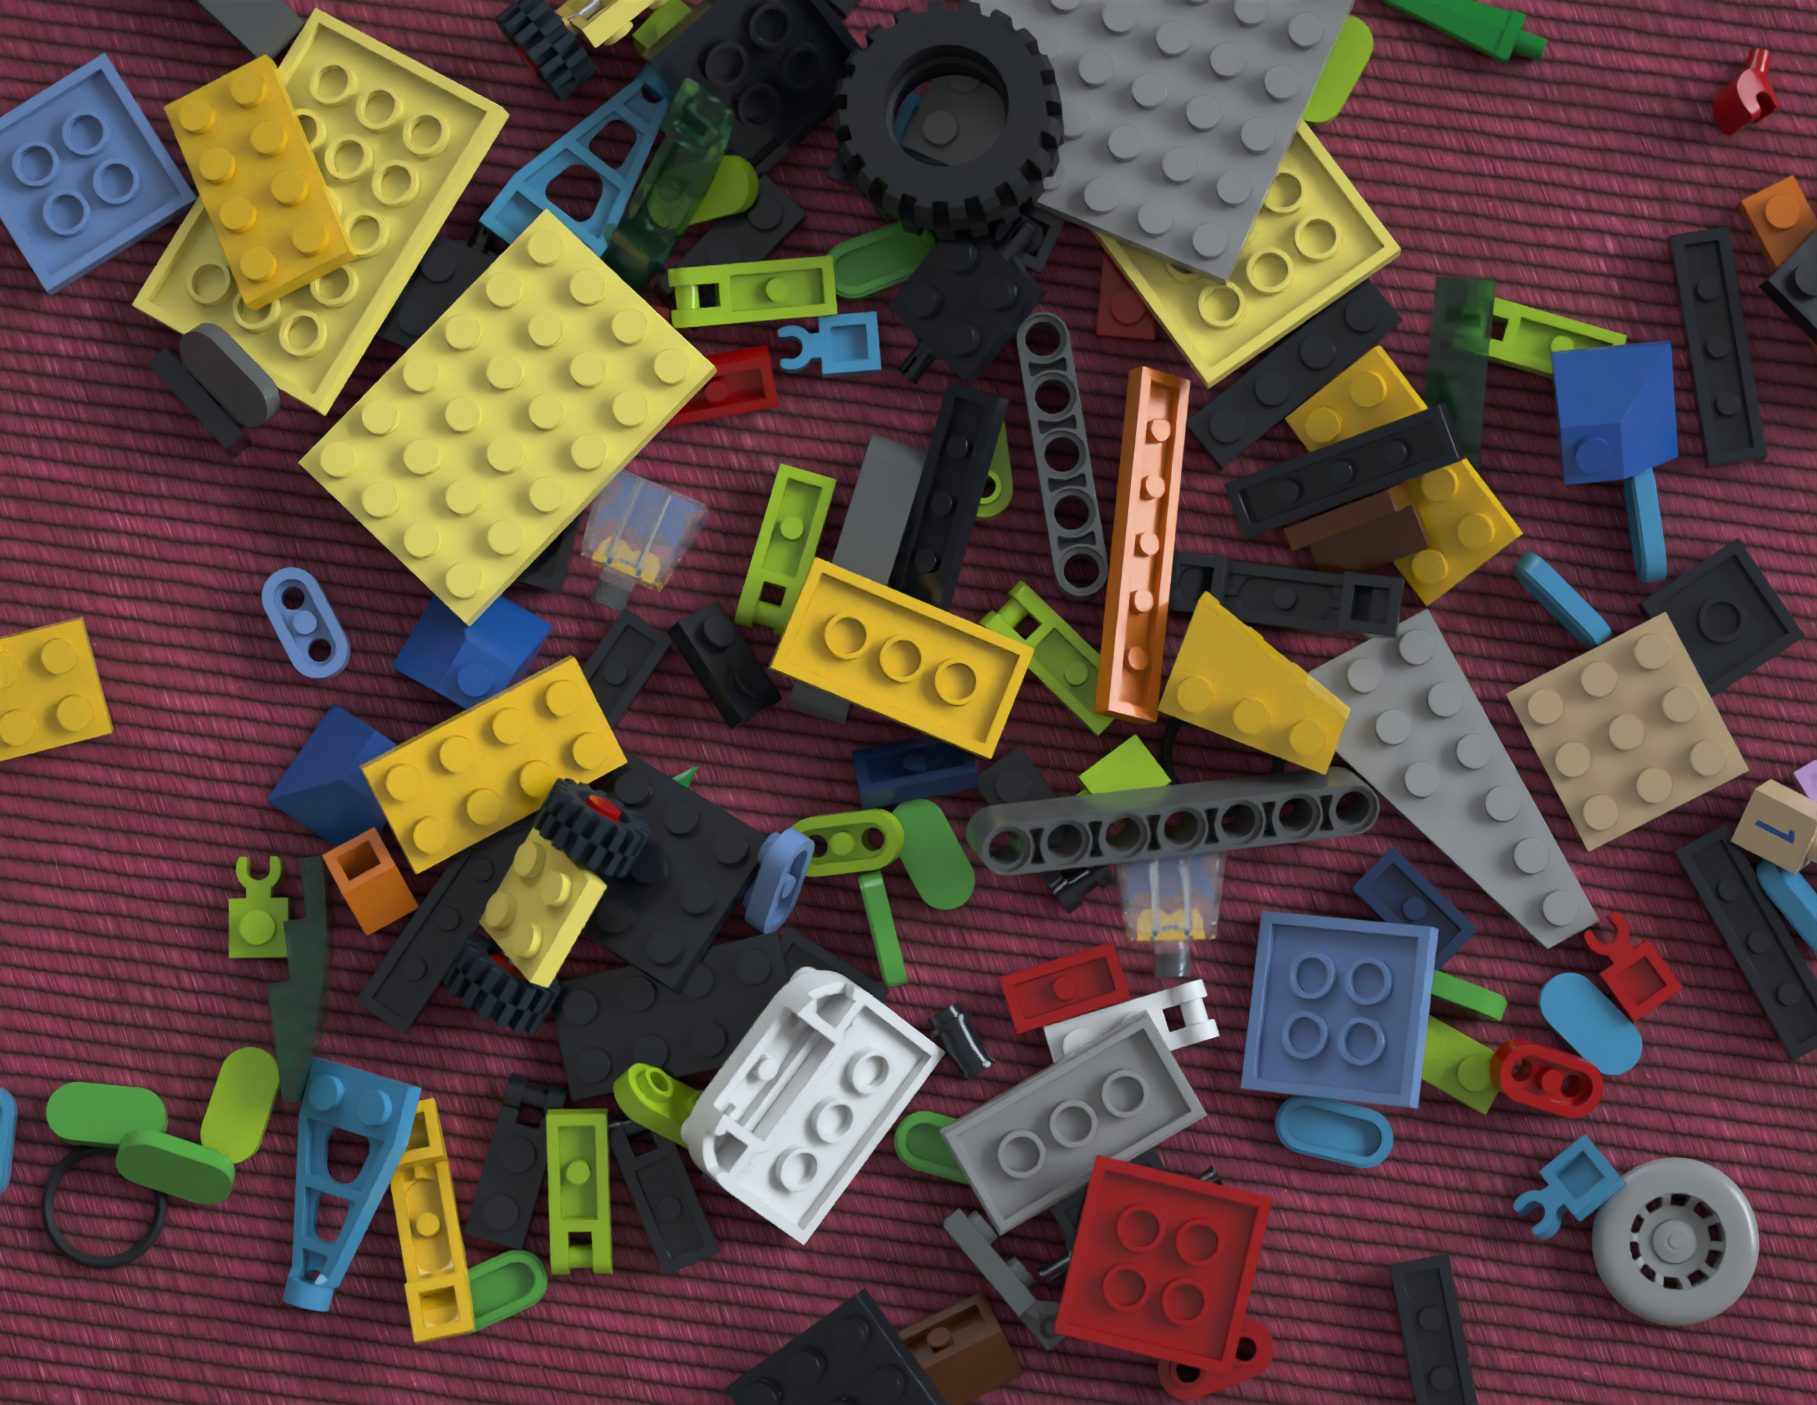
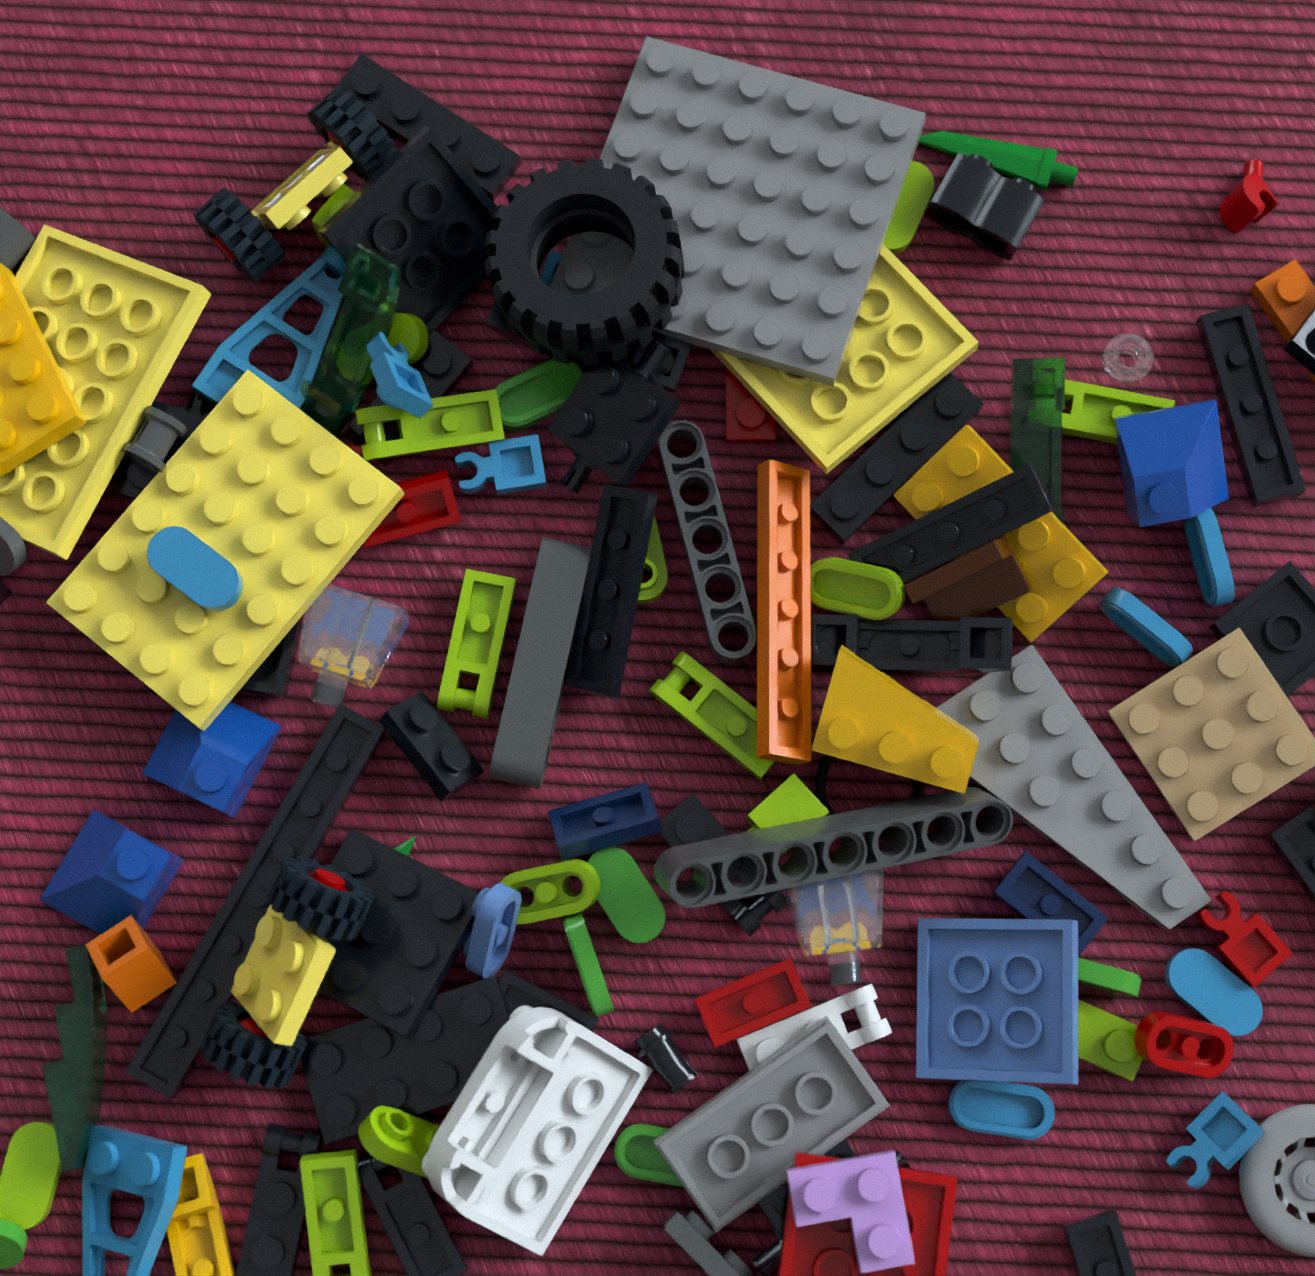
camera: 10 degrees left, 5 degrees down
(258, 919) = (33, 1007): lime plate -> none
(306, 625) = (66, 744): medium blue plate -> none
(433, 283) = (154, 439): none -> dark grey bush
(473, 441) = (194, 569): none -> dark azure tile
(492, 763) = (229, 850): yellow plate -> none
(721, 243) = (397, 381): none -> dark azure plate
(901, 658) = (584, 725): yellow plate -> none
(1169, 1204) = (868, 1194): none -> lavender plate
(1229, 525) = (856, 588): none -> lime tile
(1430, 78) = (985, 205): none -> black brick
(1584, 260) = (1137, 348): none -> clear plate

